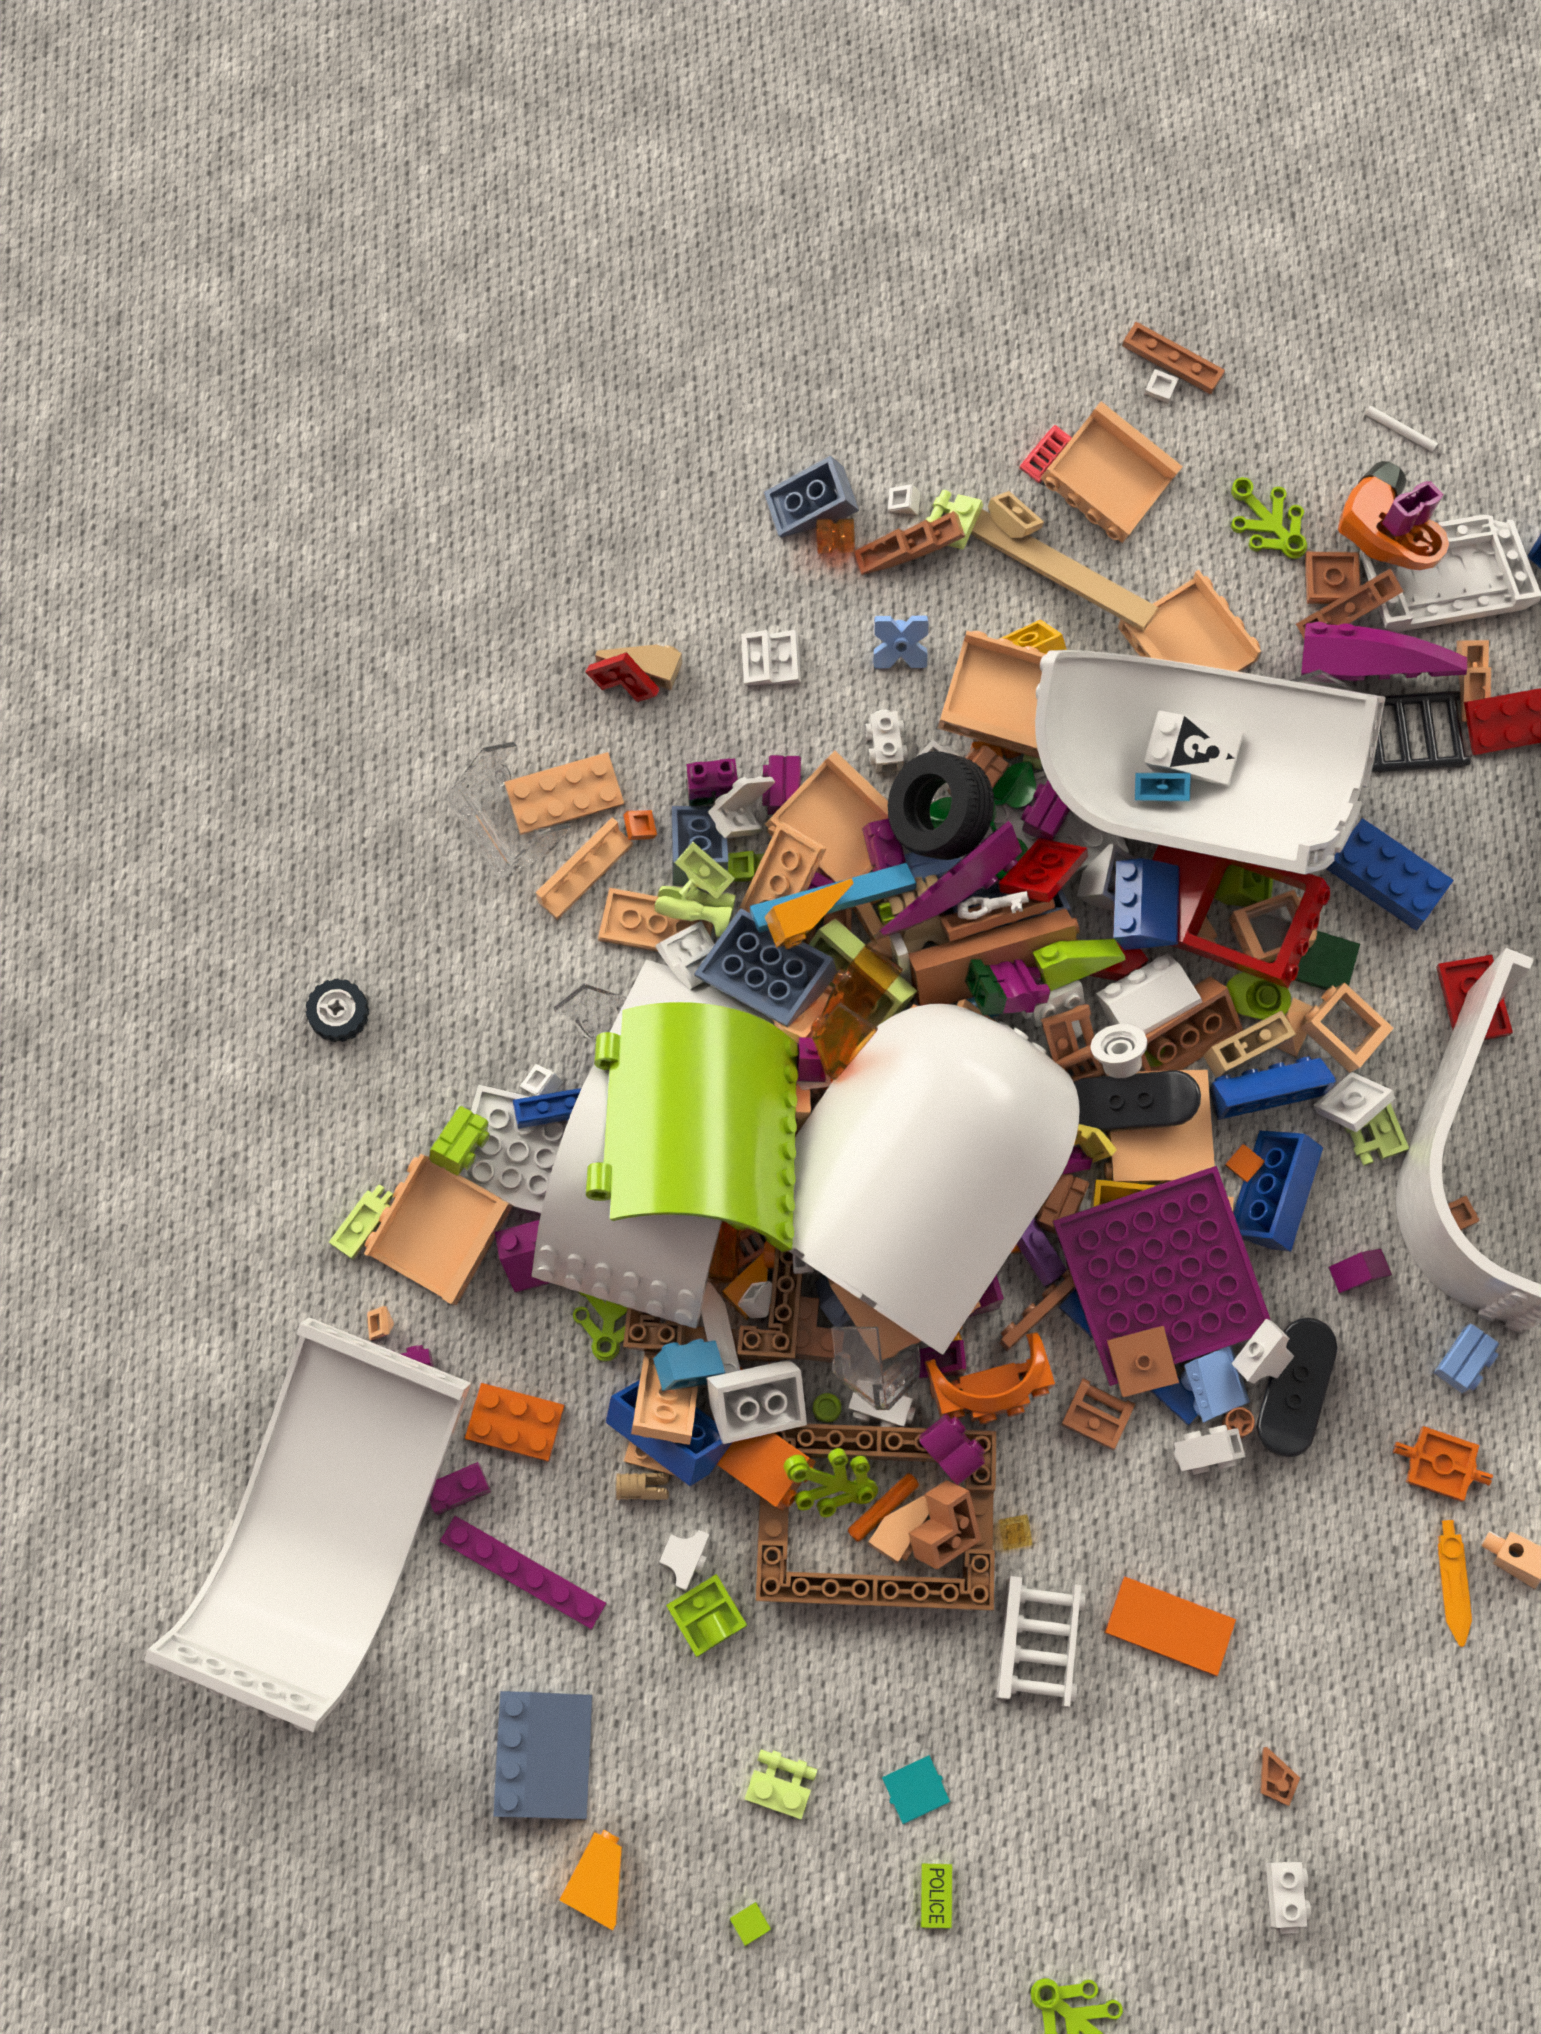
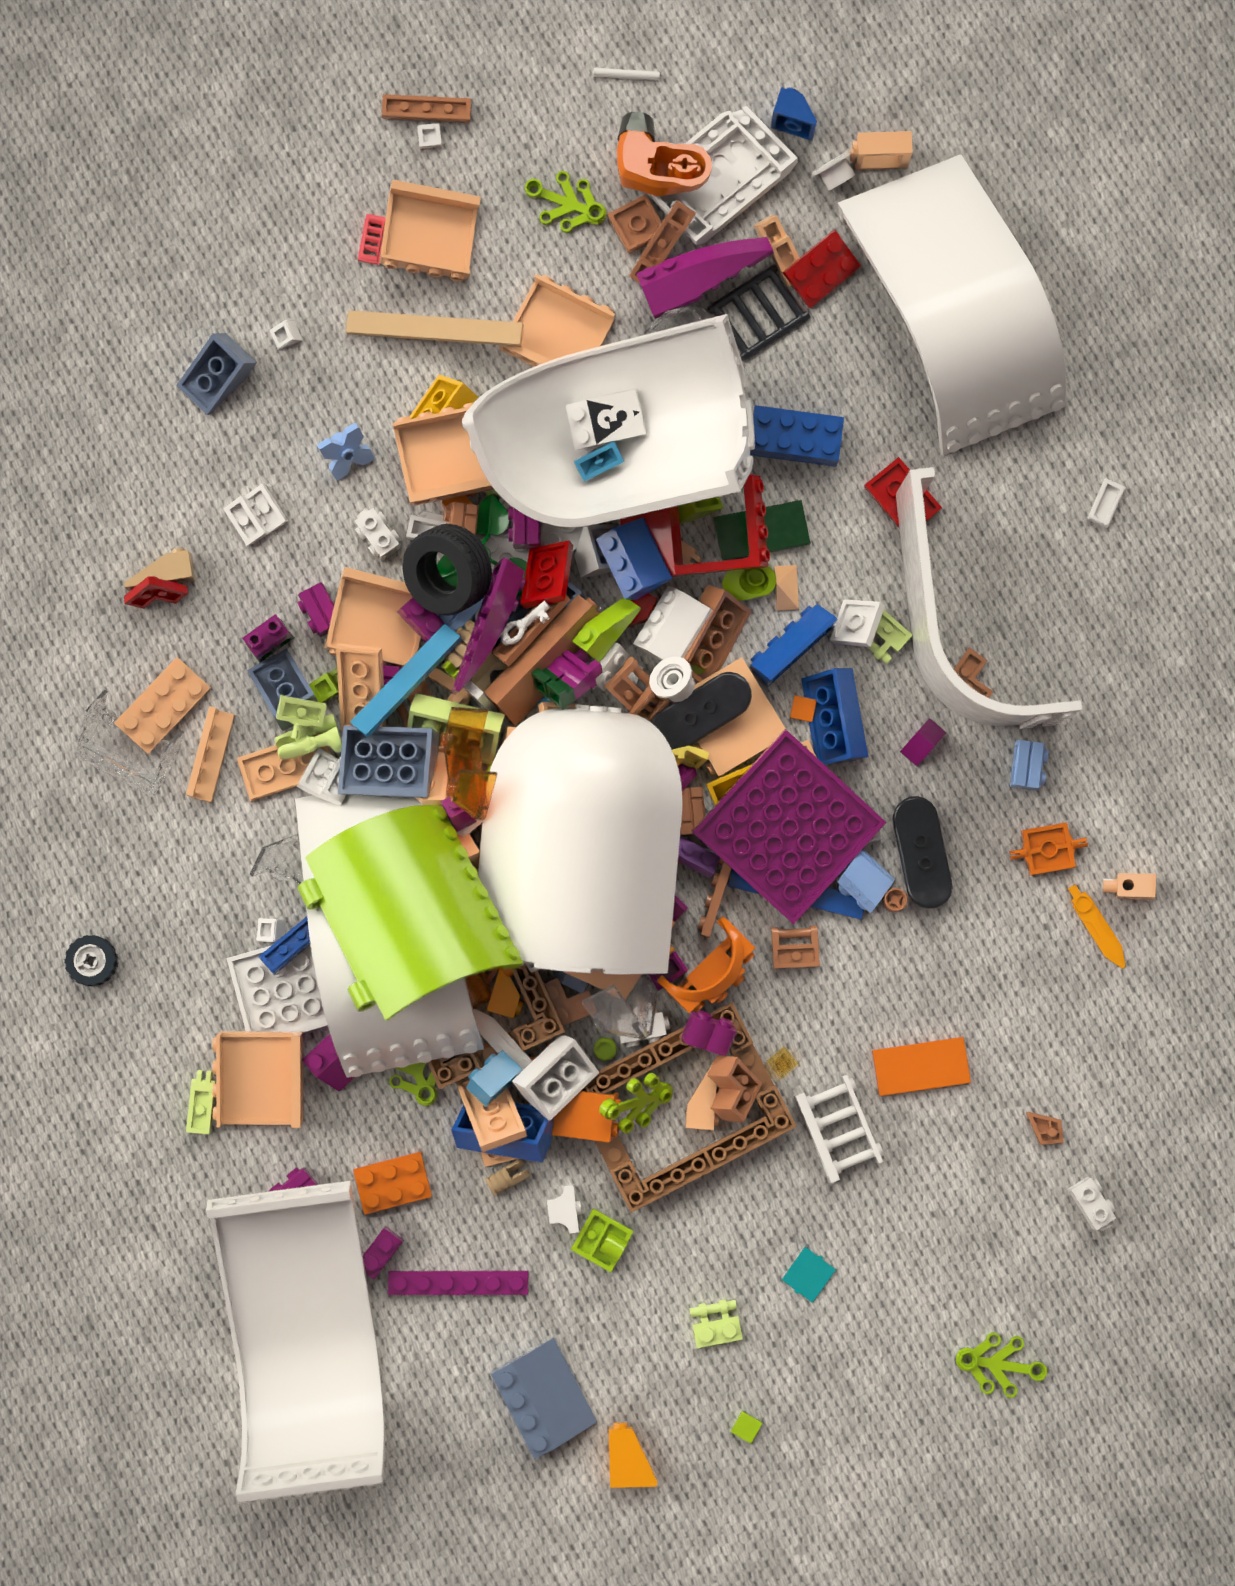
camera: 30 degrees left, 10 degrees up
(385, 1323) = (259, 1164): light nougat slope -> none
(459, 1141) = (238, 1009): lime brick -> none
(640, 825) = (232, 698): orange tile -> none
(732, 809) = (297, 653): white bracket -> none
(757, 1300) = (515, 1004): white slope -> none
(795, 918) = (394, 713): light orange slope -> none
(835, 536) = (251, 392): clear orange wheel -> none
(883, 1507) = (682, 1096): orange axle -> none
(909, 544) = (309, 369): nougat slope -> none
(936, 1895) = (860, 1336): lime tile -> none
(966, 508) = (337, 330): yellowish green plate -> none
(1013, 516) = (376, 305): tan slope -> none
(1142, 1361) = (807, 895): nougat plate -> none
(1200, 1451) = (888, 928): white brick -> none
(1248, 1044) = (761, 621): tan slope -> none
(1264, 1353) = (888, 843): white brick -> none
(1265, 925) = (728, 526): window -> none
(1346, 1027) = (823, 569): light nougat window -> none
(1412, 508) = (670, 146): magenta brick -> none

